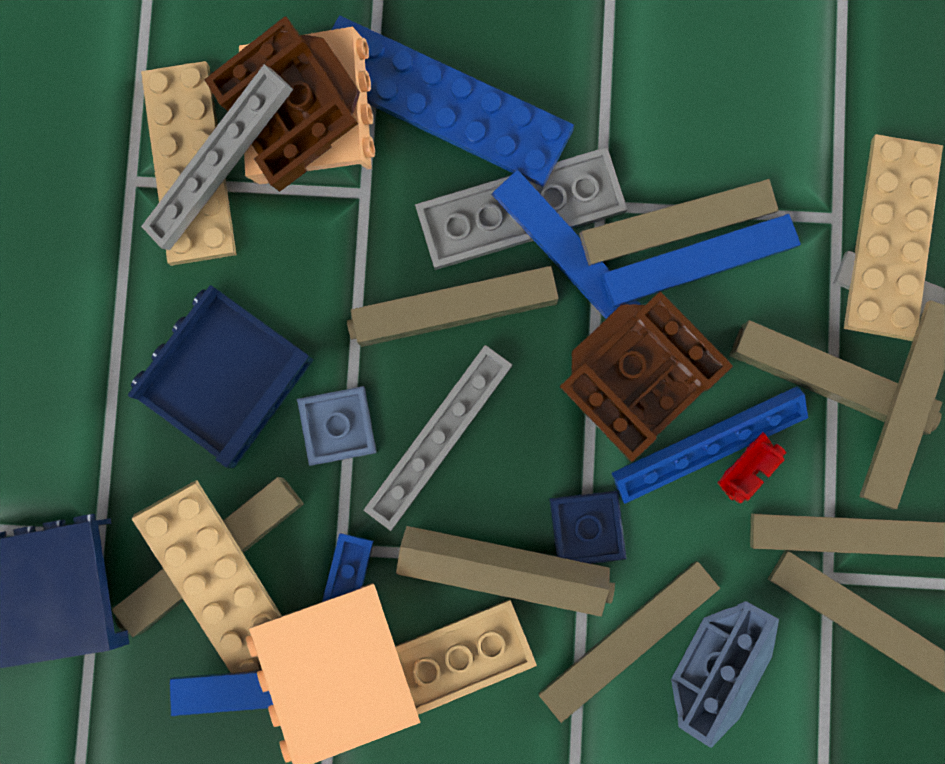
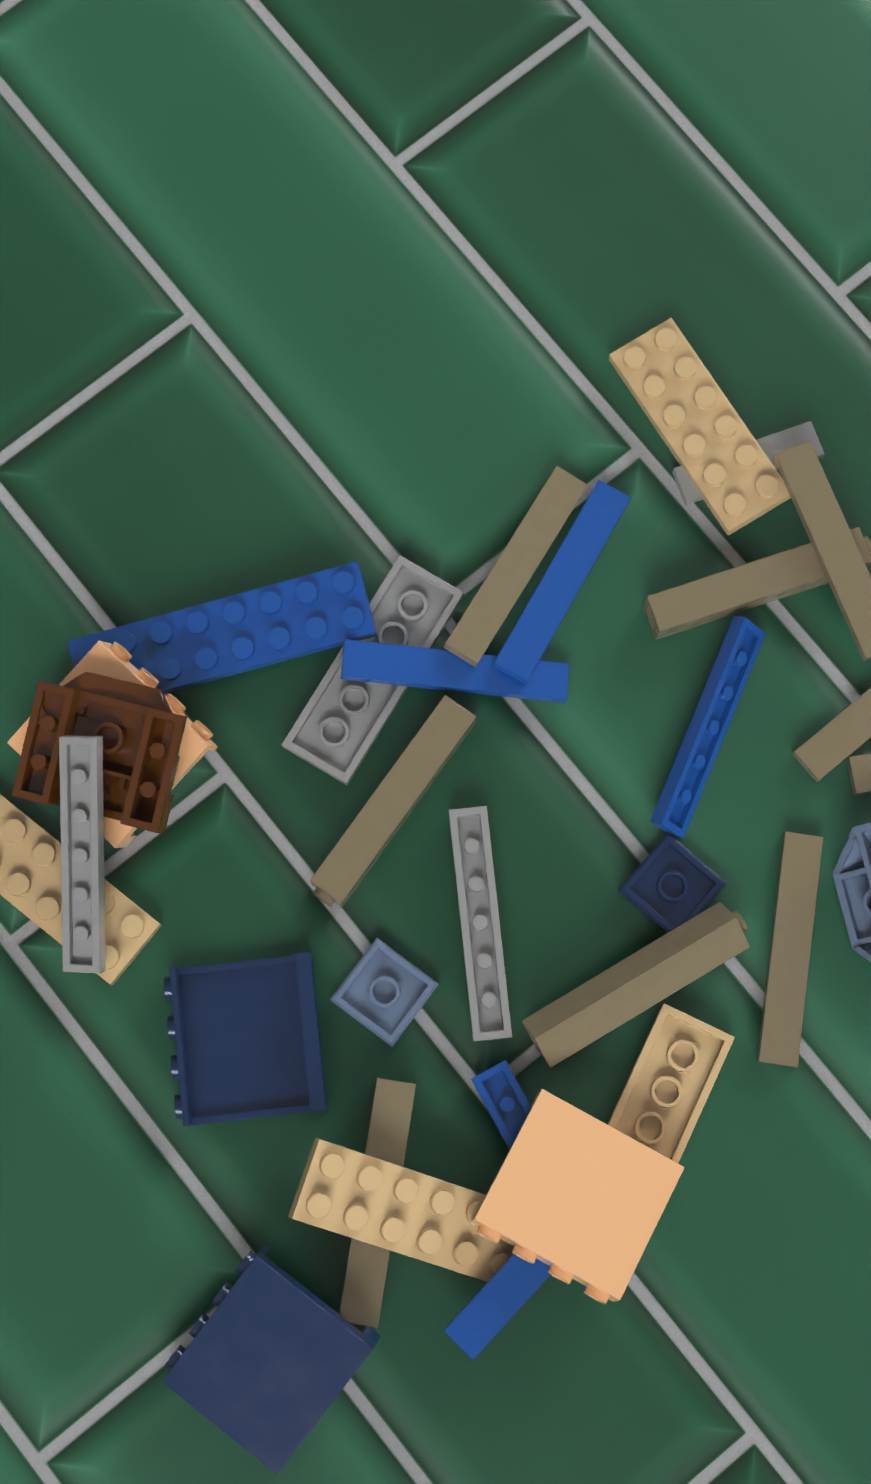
camera: 50 degrees left, 5 degrees down
(641, 372) = (598, 717): reddish brown slope -> none
(741, 480) = (758, 733): red hinge -> none

